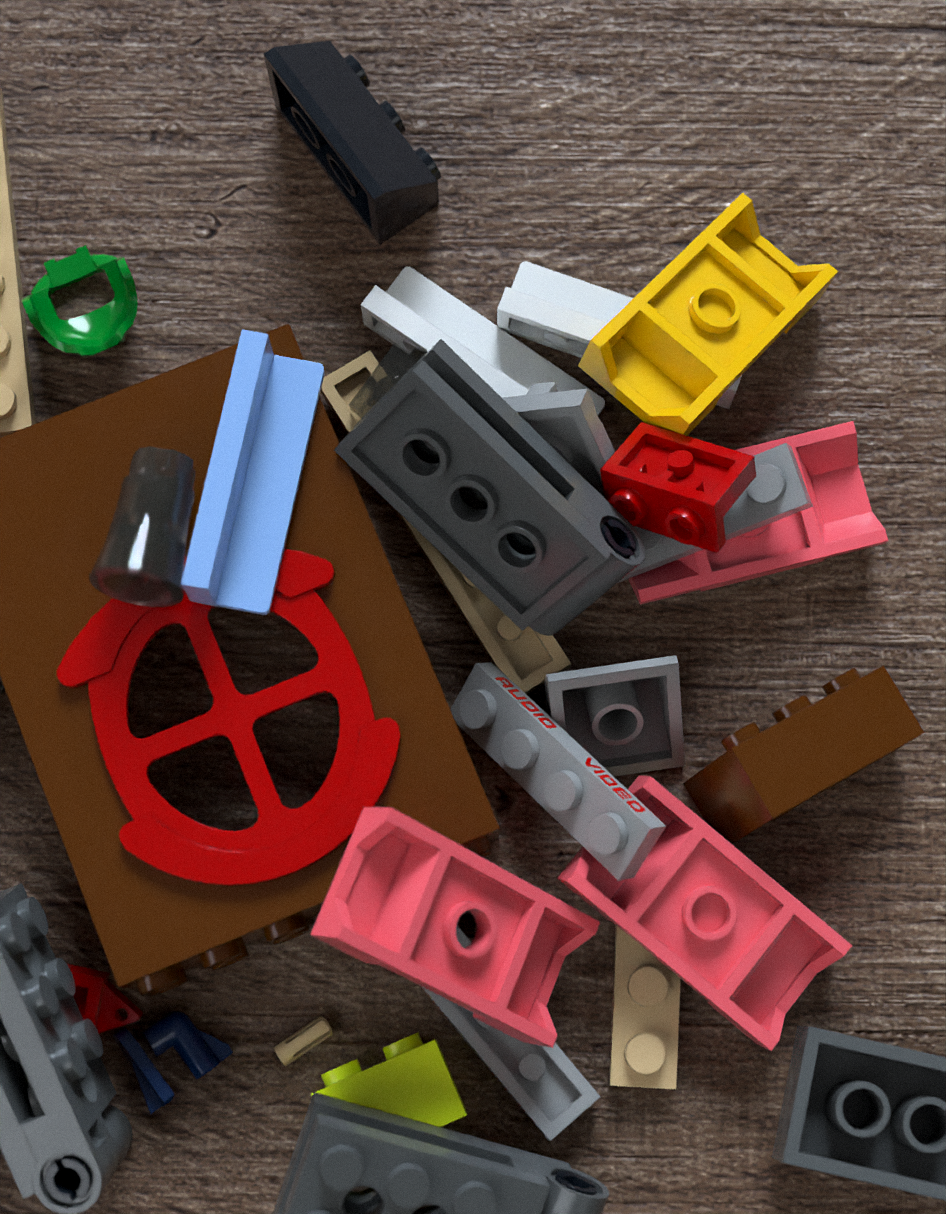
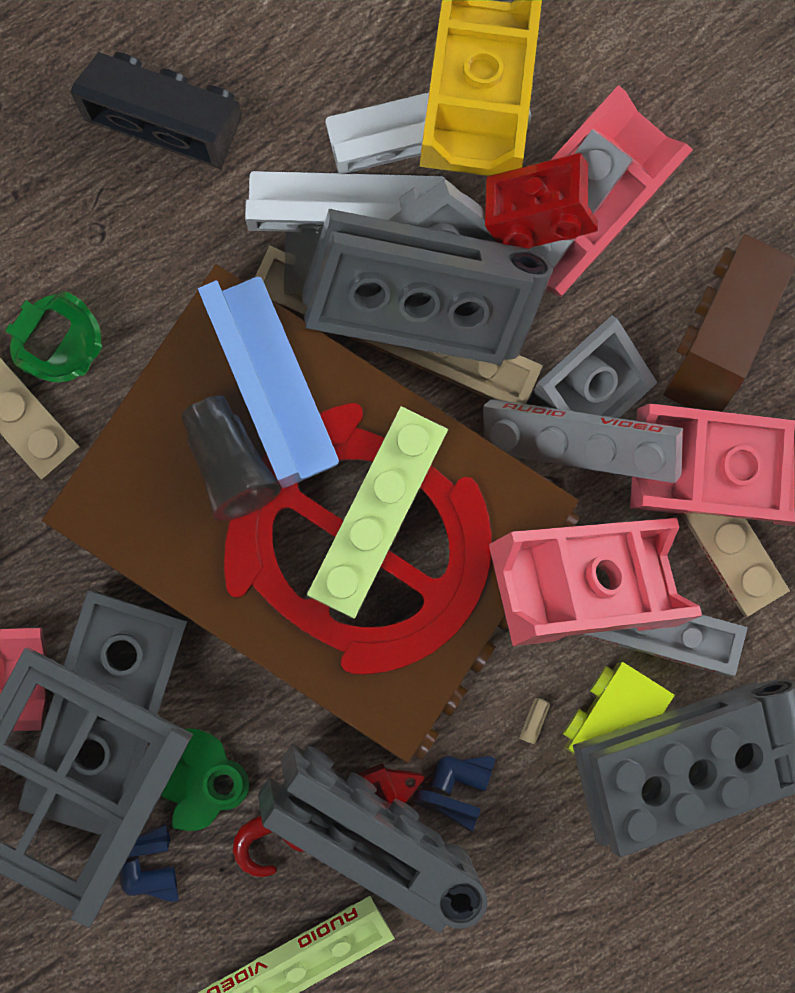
camera: 40 degrees left, 5 degrees up
(269, 693) = (377, 512): none -> yellowish green plate

